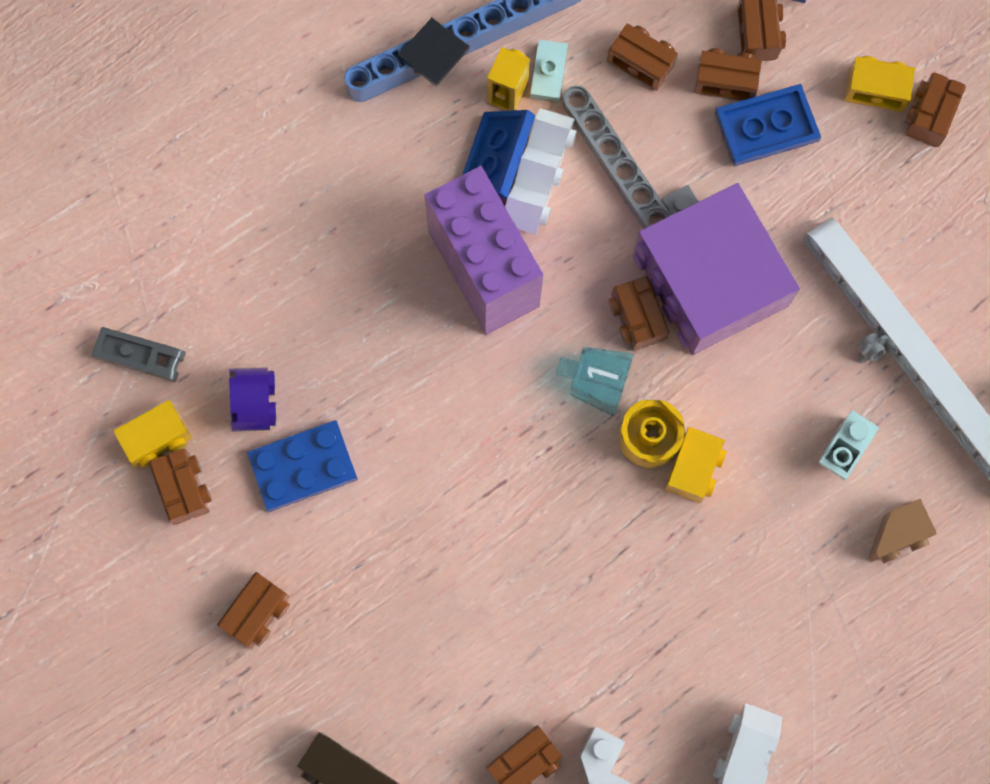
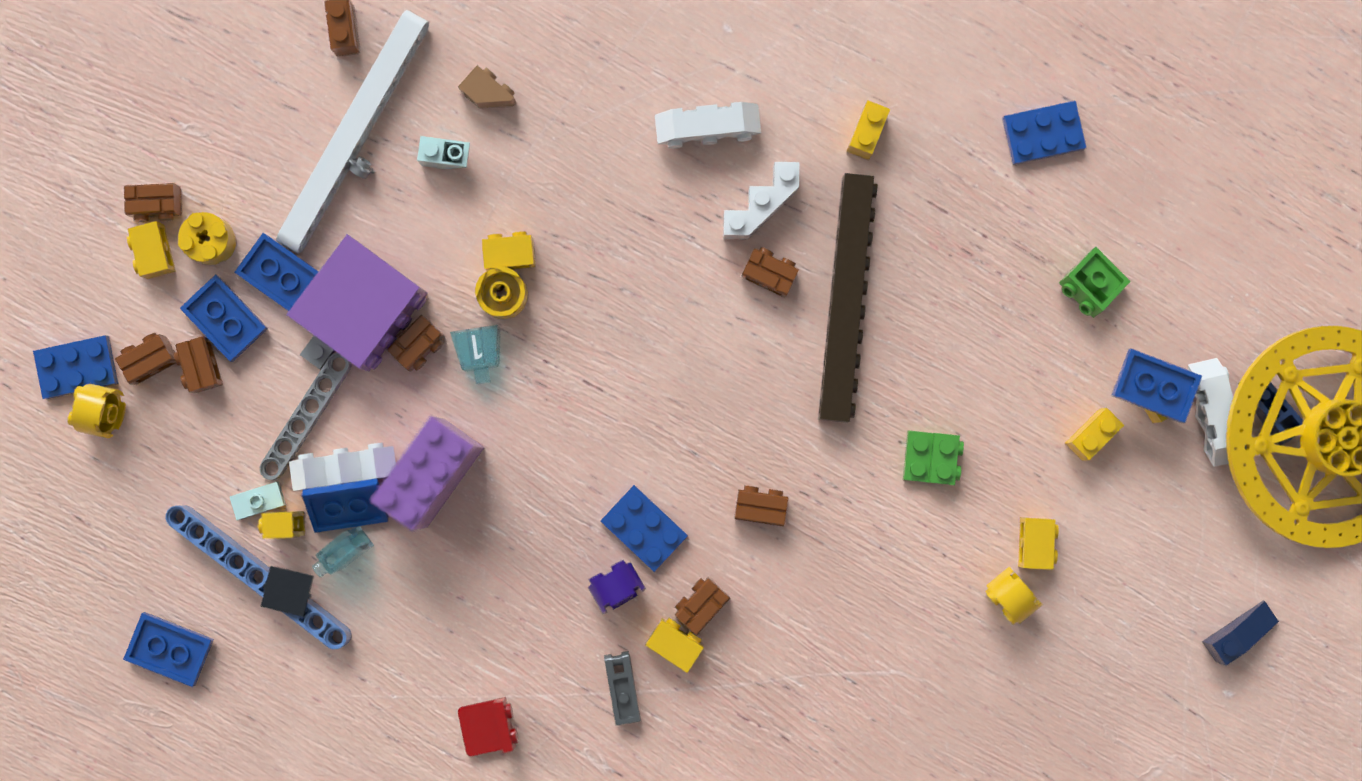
camera: 115 degrees left, 10 degrees up
(177, 192) = (487, 727): none -> red bracket
(447, 122) = (342, 551): none -> clear light blue torso
(642, 56) = (213, 435): dark orange brick -> none
(795, 201) = (276, 271): none -> blue plate
(878, 136) = (197, 228): none -> yellow brick

